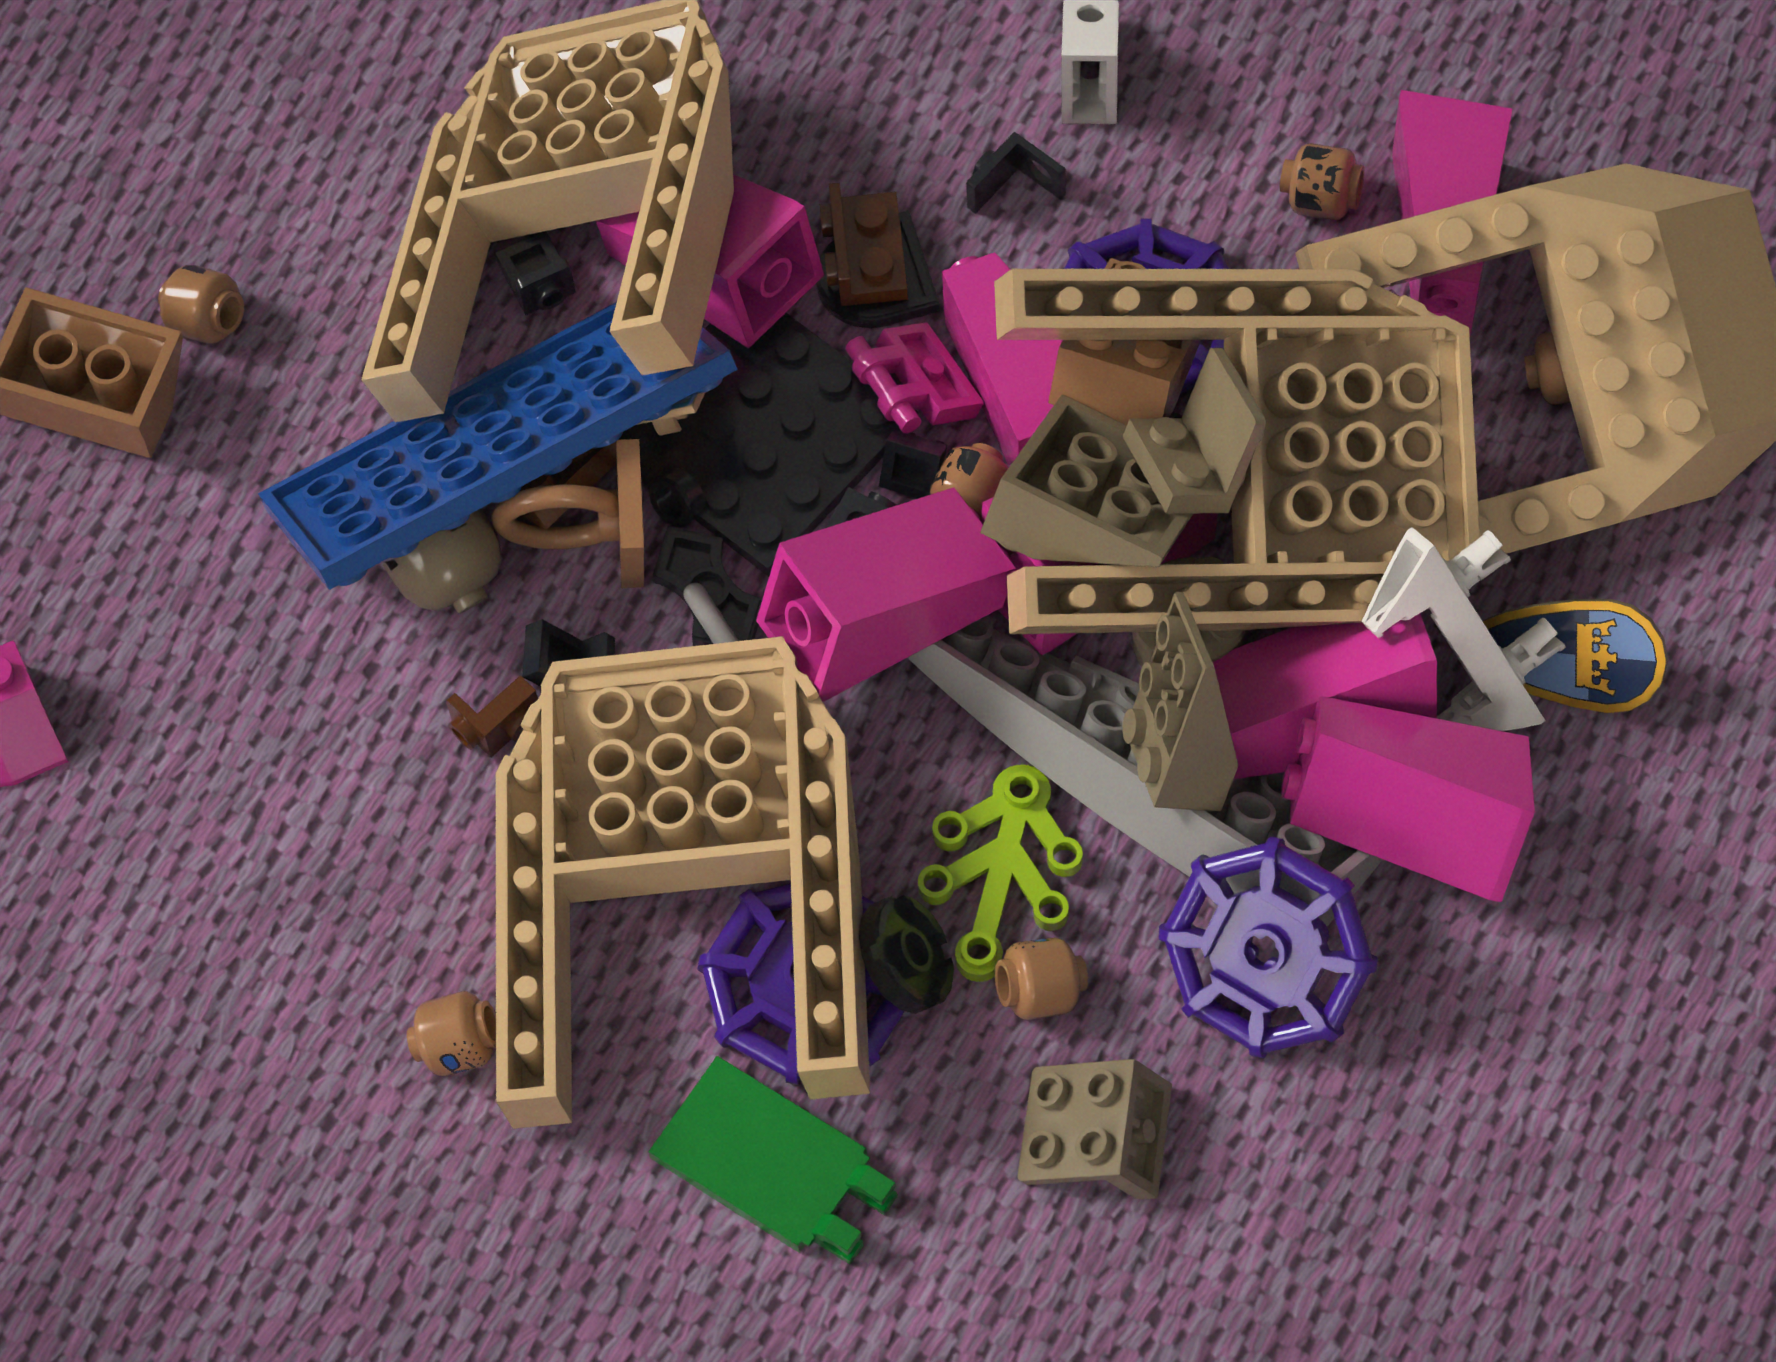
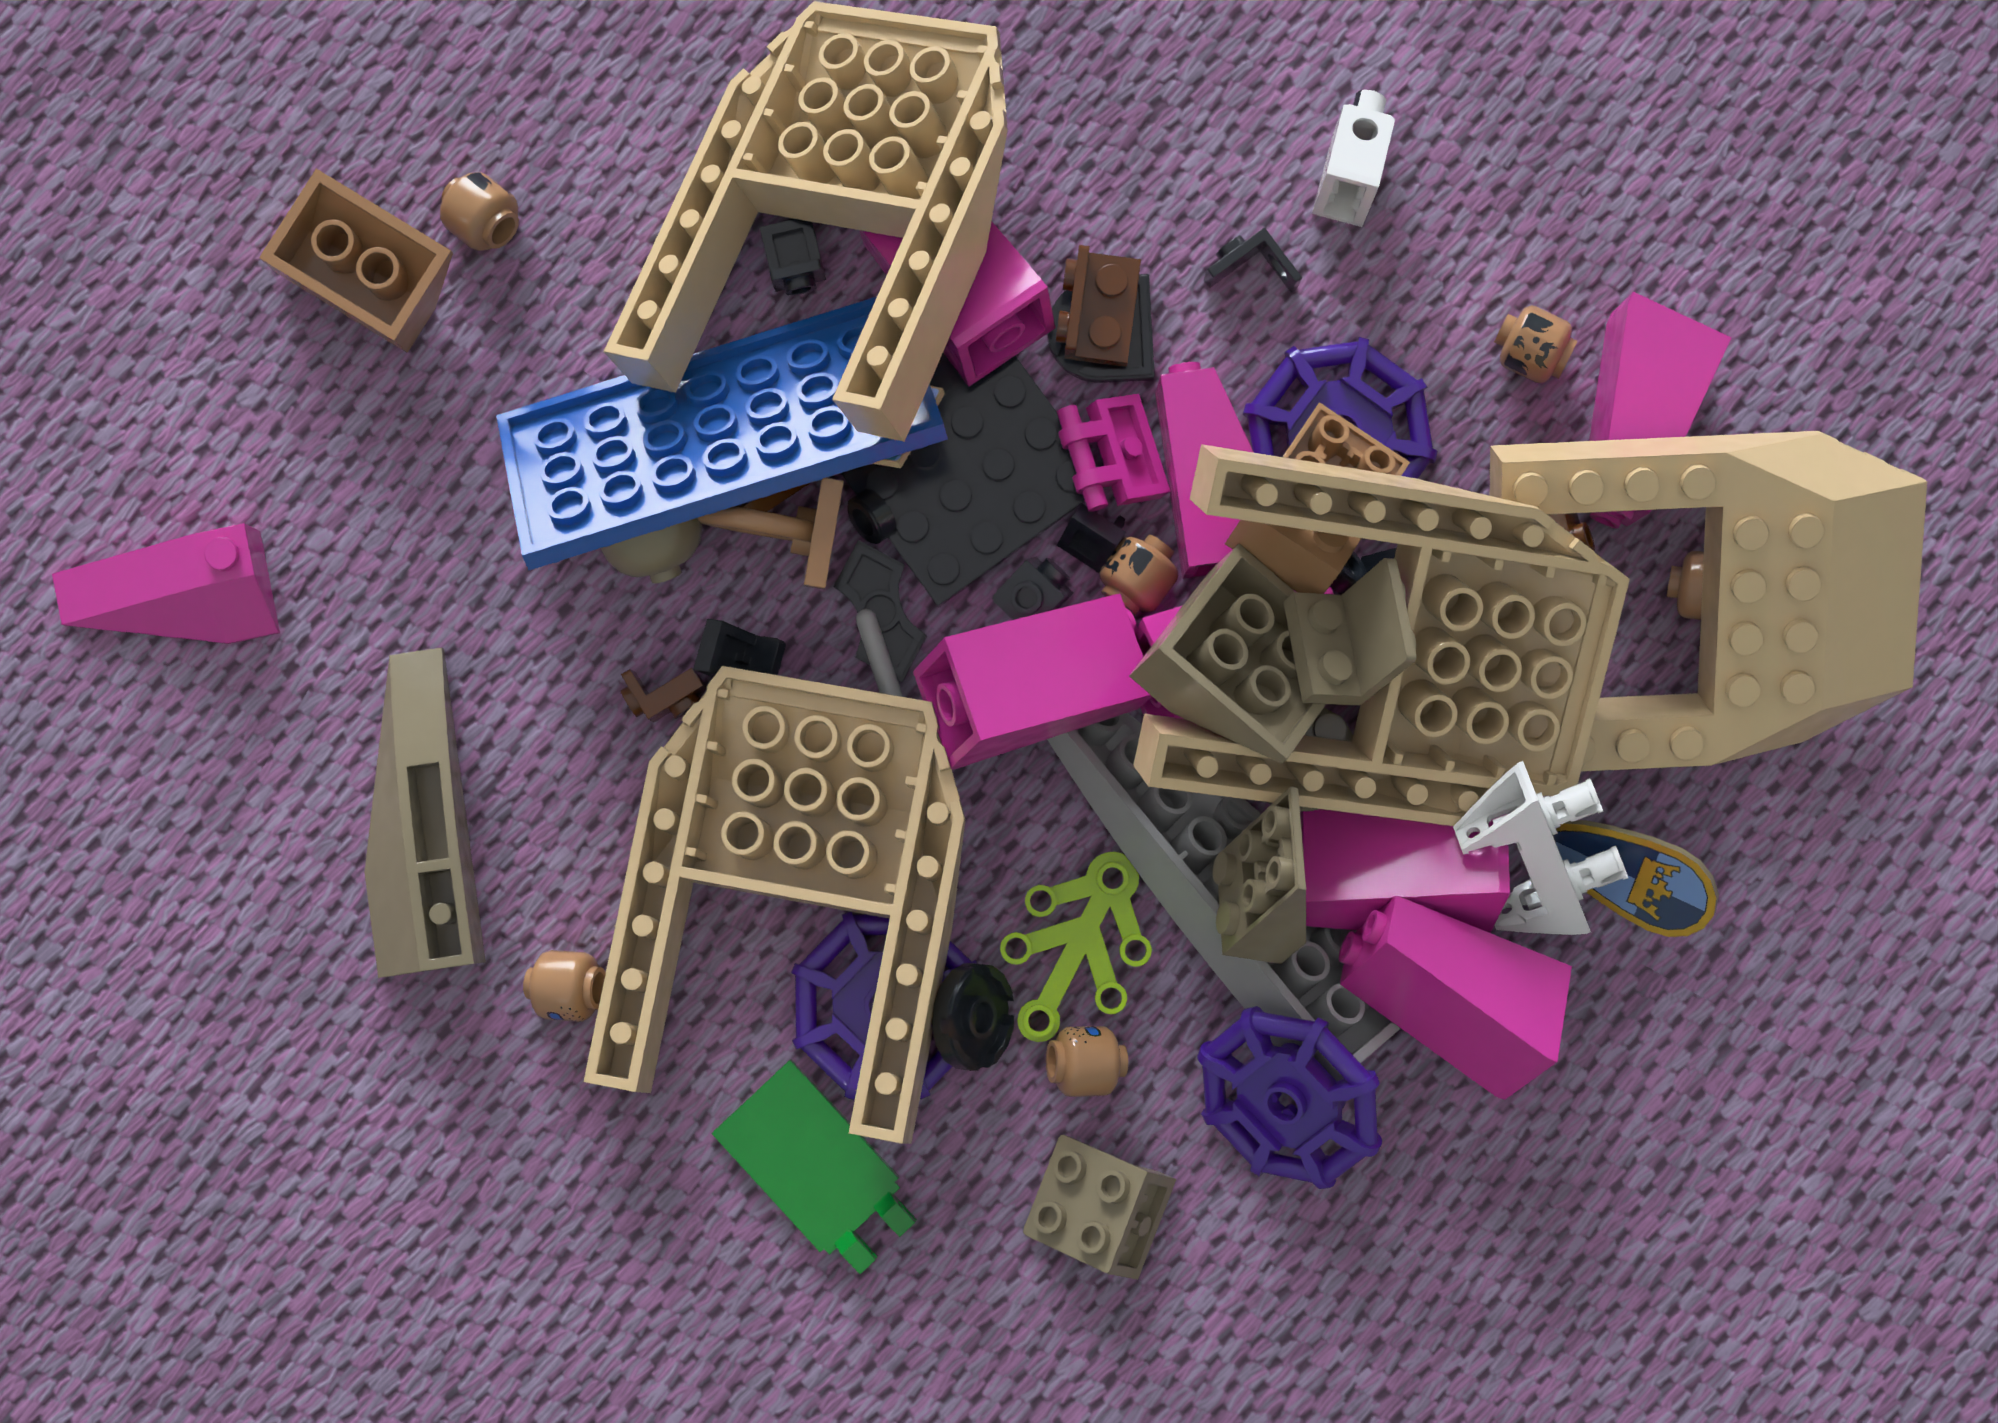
camera: 10 degrees right, 20 degrees up
(259, 920) = (418, 830): none -> dark tan wedge

